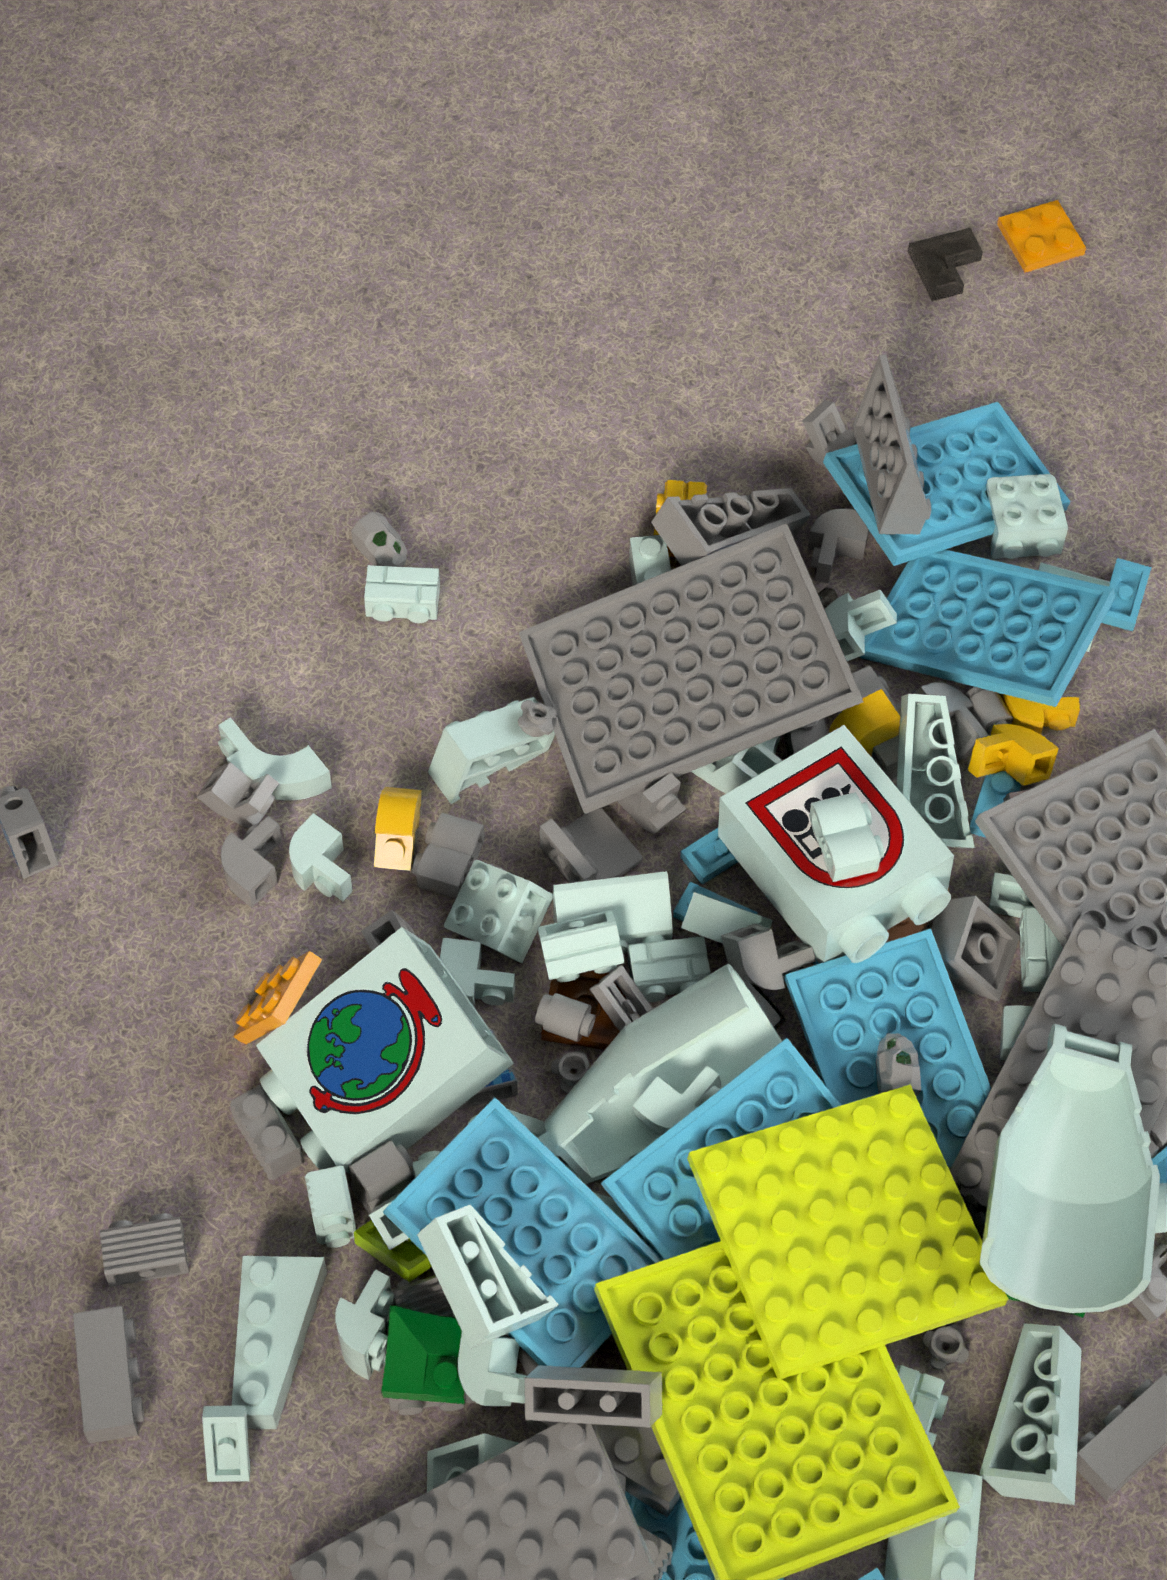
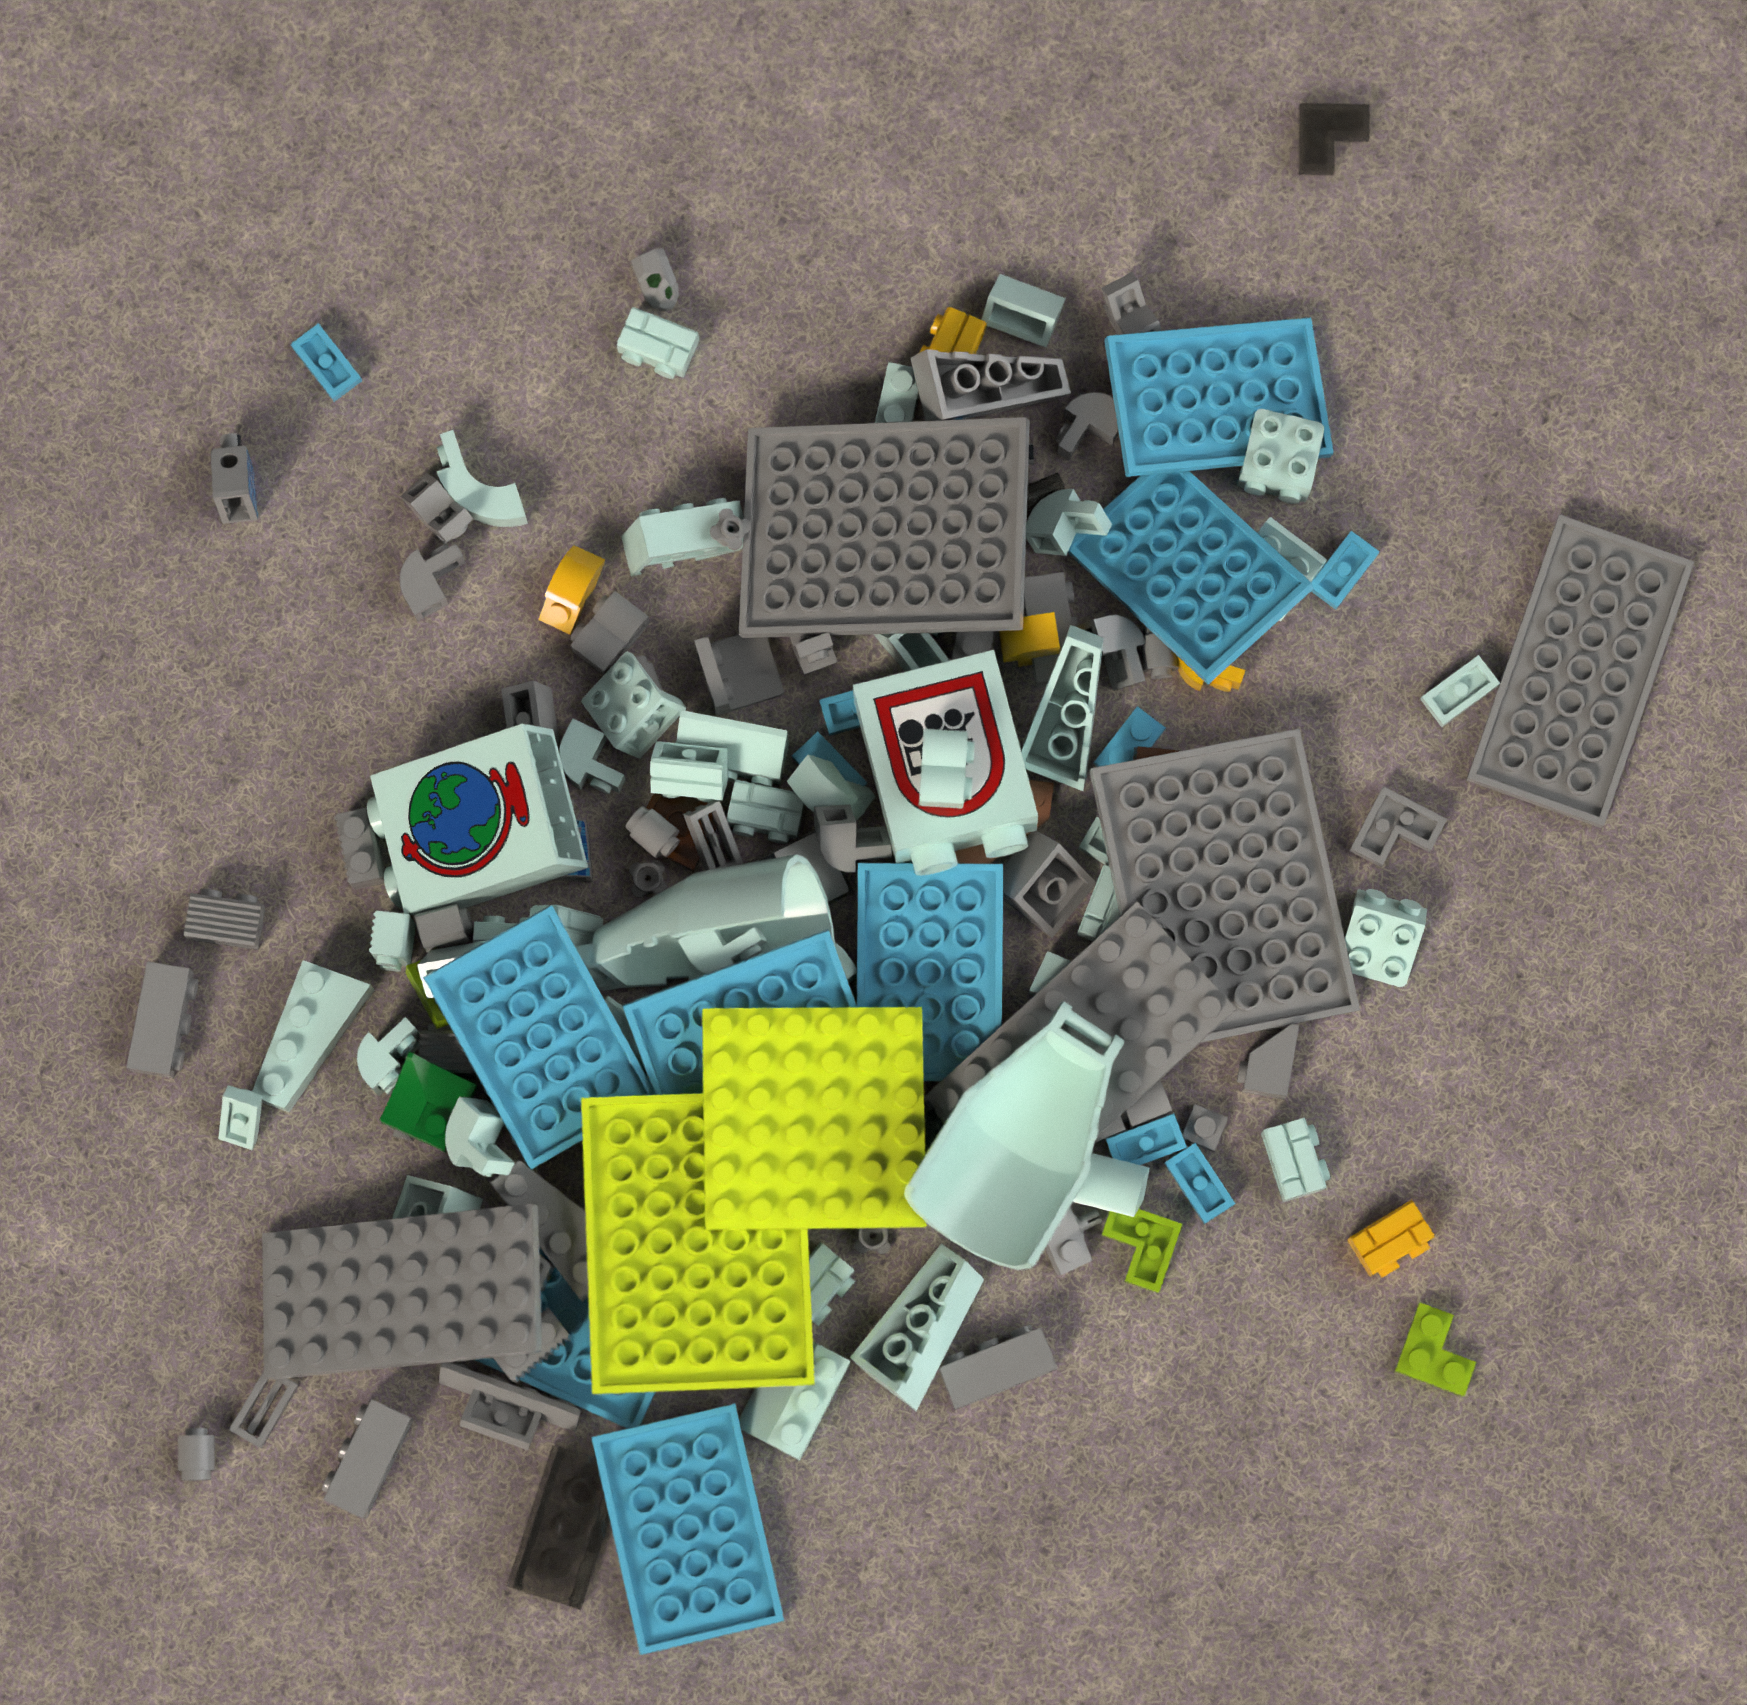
camera: 20 degrees right, 20 degrees up
(83, 703) = (326, 362): none -> medium azure plate
(276, 997) = (404, 731): light orange plate -> none
(312, 857) = (483, 590): light aqua brick -> none
(480, 1278) = (482, 1068): light aqua wedge -> none
(593, 1396) = (541, 1197): light grey brick -> none
(734, 470) = (1022, 310): none -> light aqua brick
(890, 457) = (1161, 370): light grey slope -> none
(897, 1064) = (923, 981): light grey rock -> none
(1016, 751) = (1166, 702): yellow brick -> none
(1041, 236) = (1441, 132): light orange plate -> none

